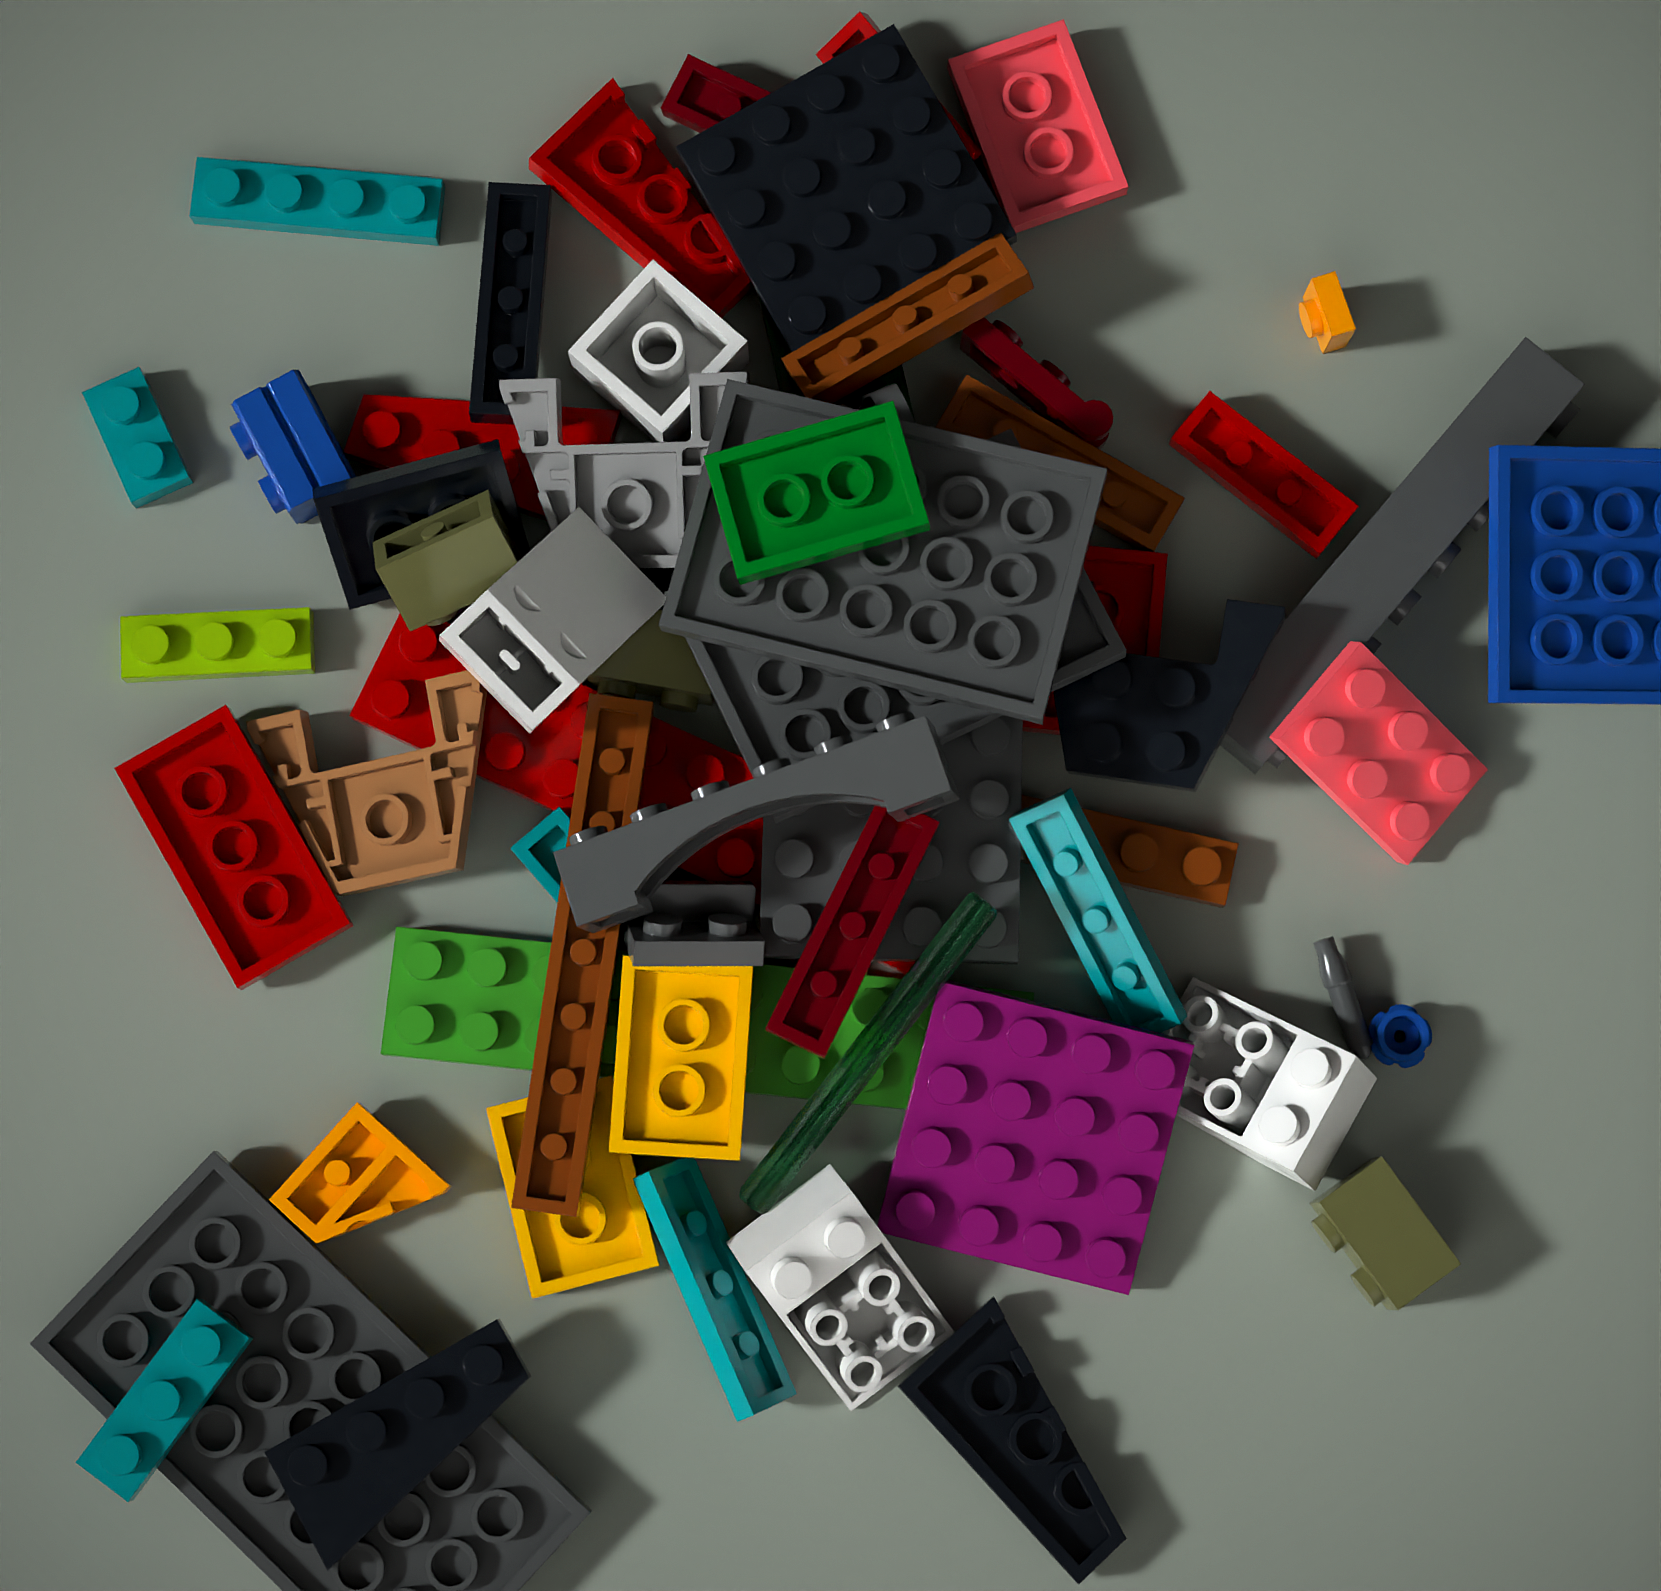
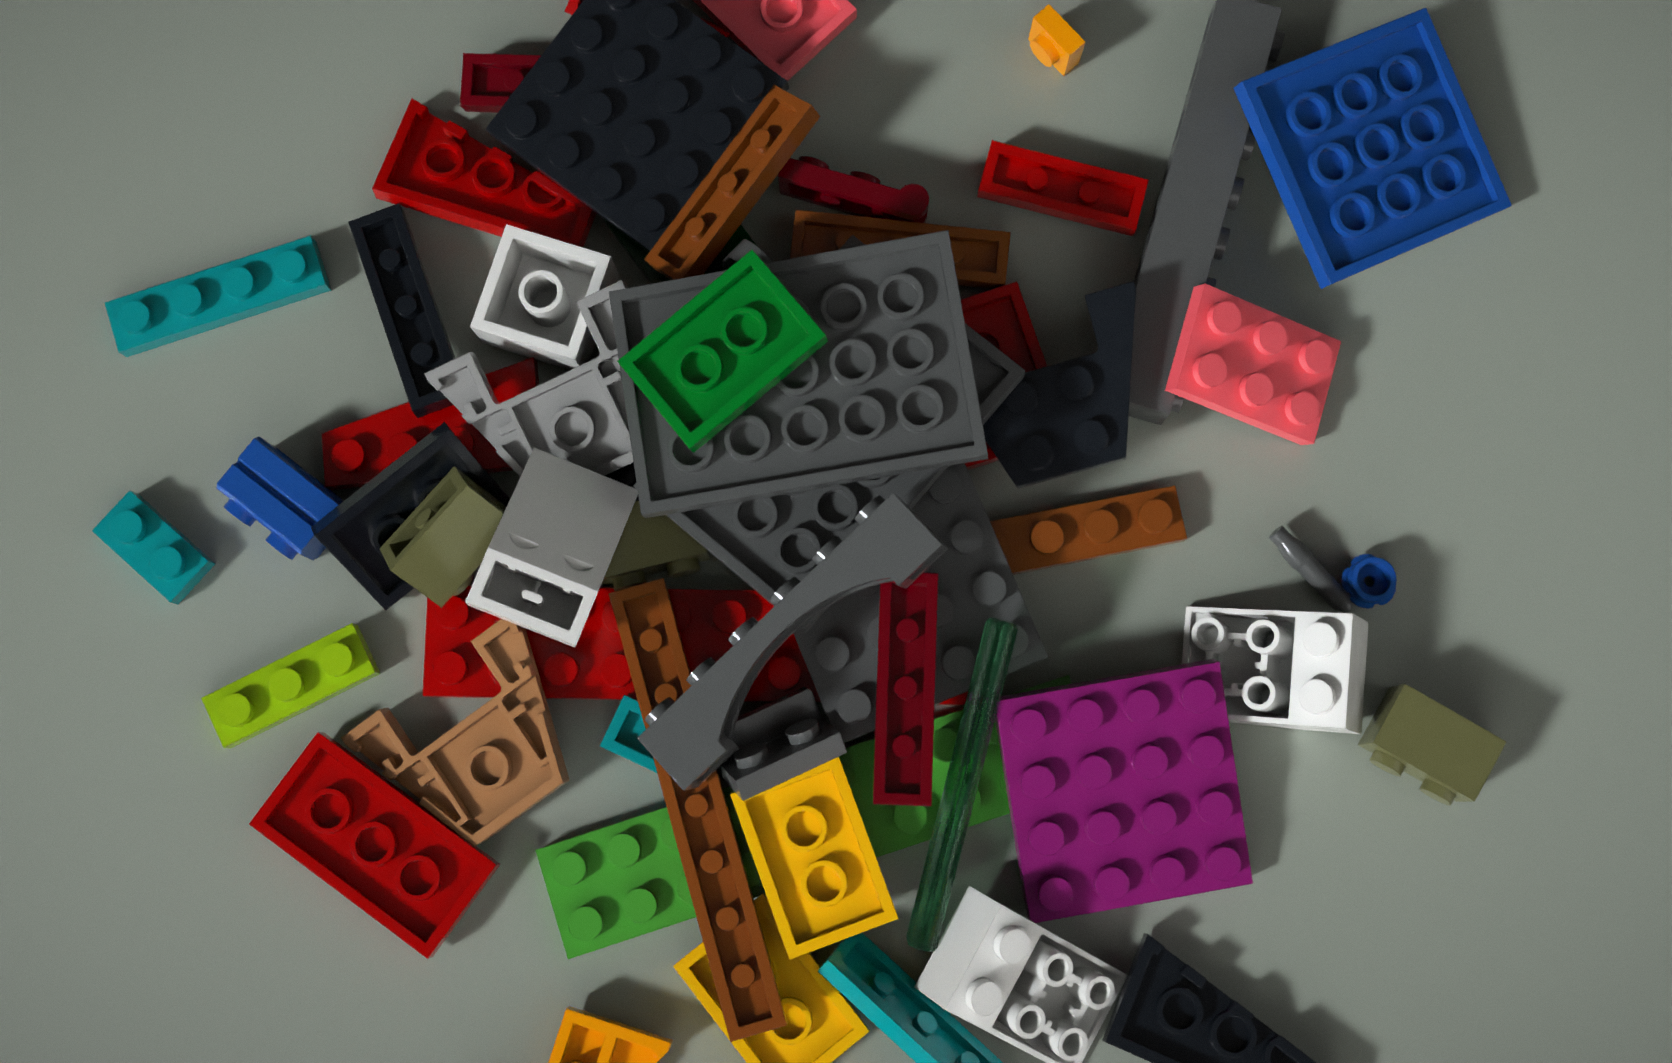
camera: 20 degrees left, 0 degrees up
(1097, 913) = (1092, 590): teal plate -> none

